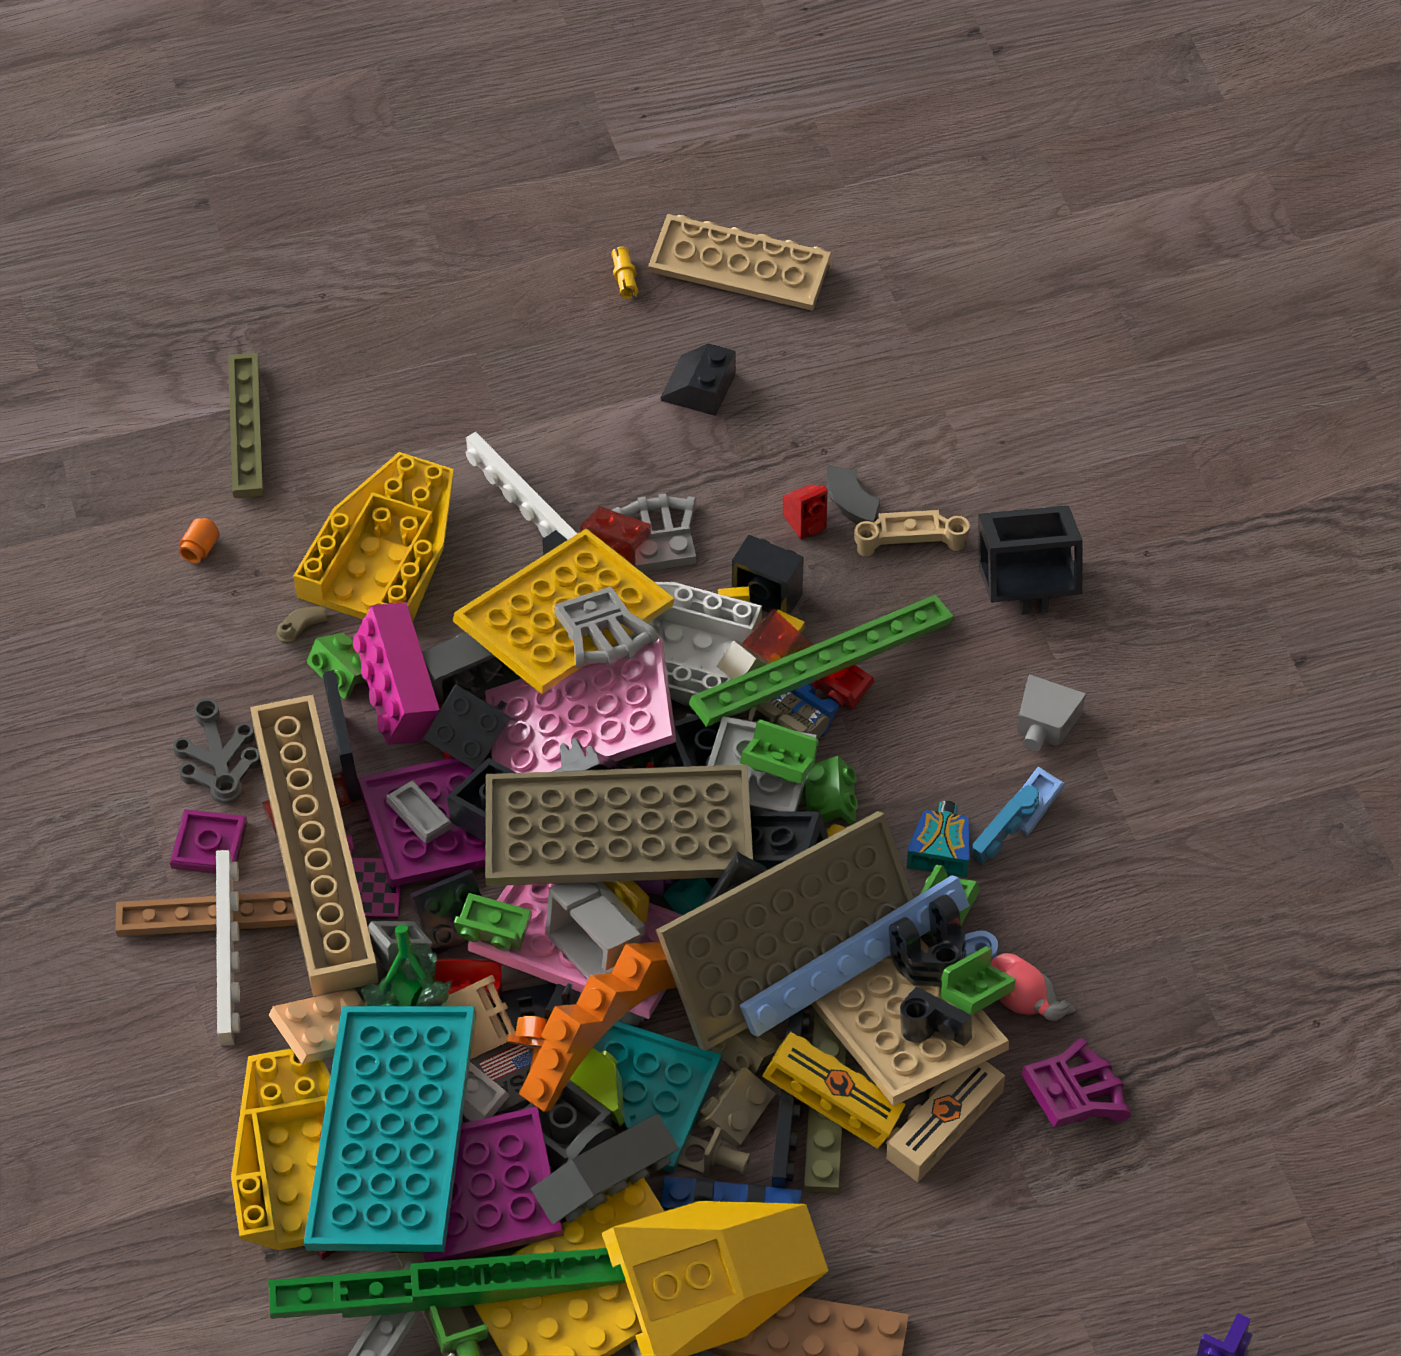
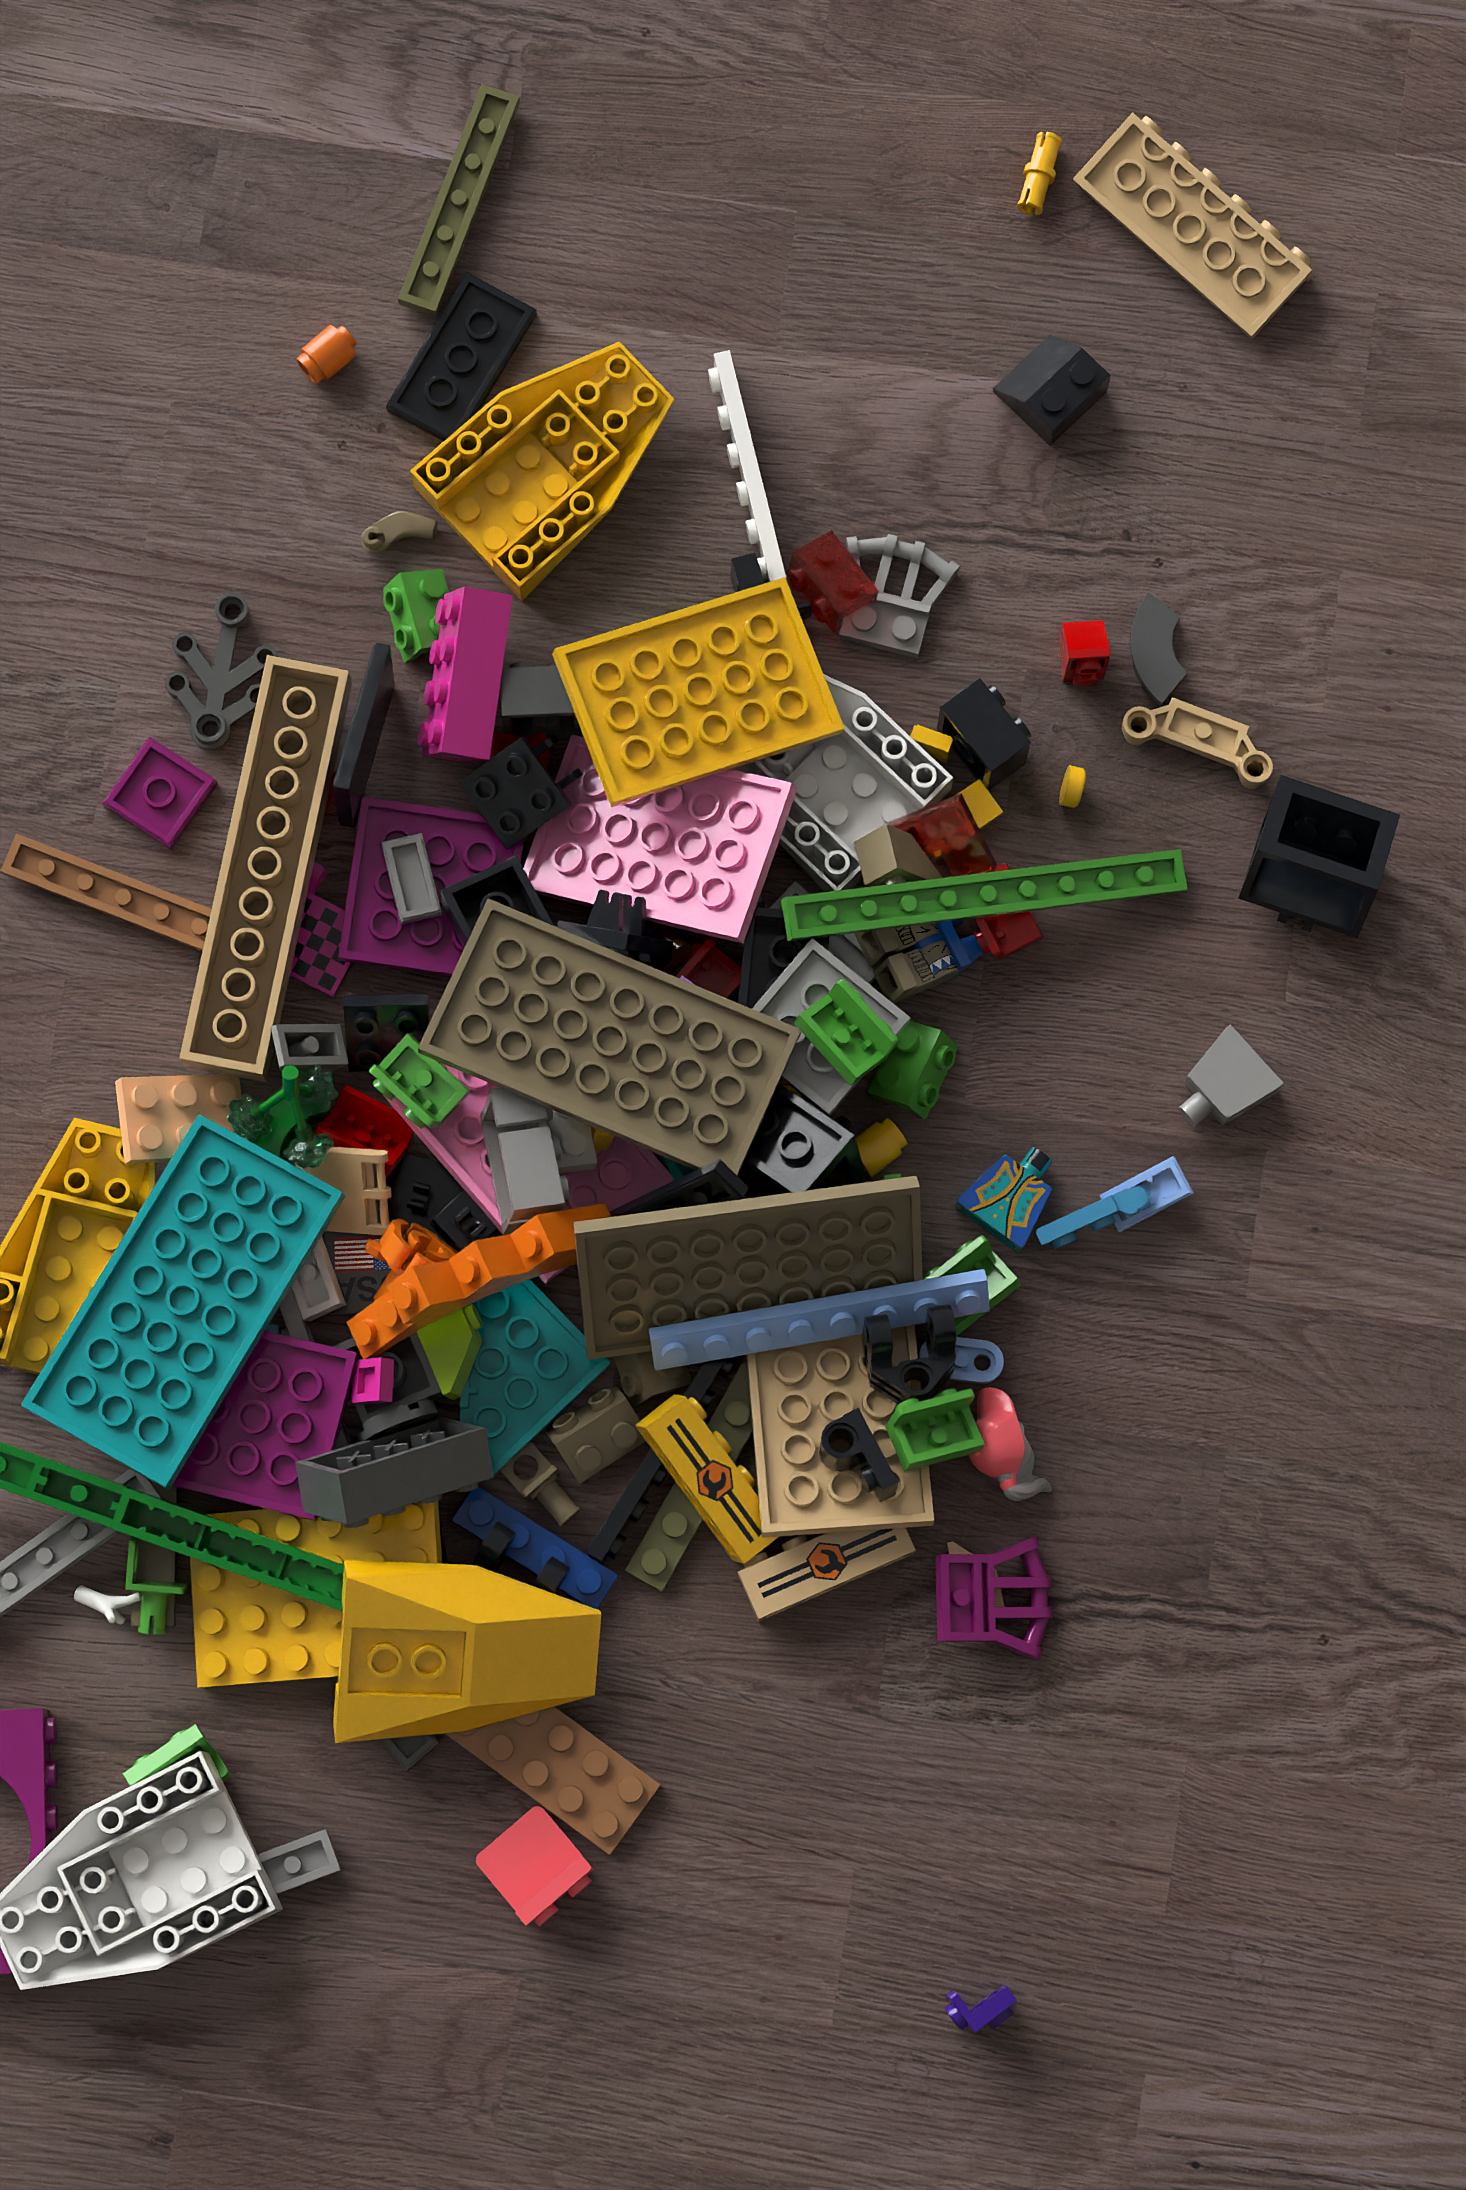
camera: 25 degrees right, 25 degrees up
(227, 959) = (118, 942): white plate -> none
(292, 511) = (461, 358): none -> black tile
(558, 1120) = (373, 1381): none -> dark pink plate
(598, 612) = (724, 724): light grey plate -> none
(842, 589) = (1072, 786): none -> yellow tile

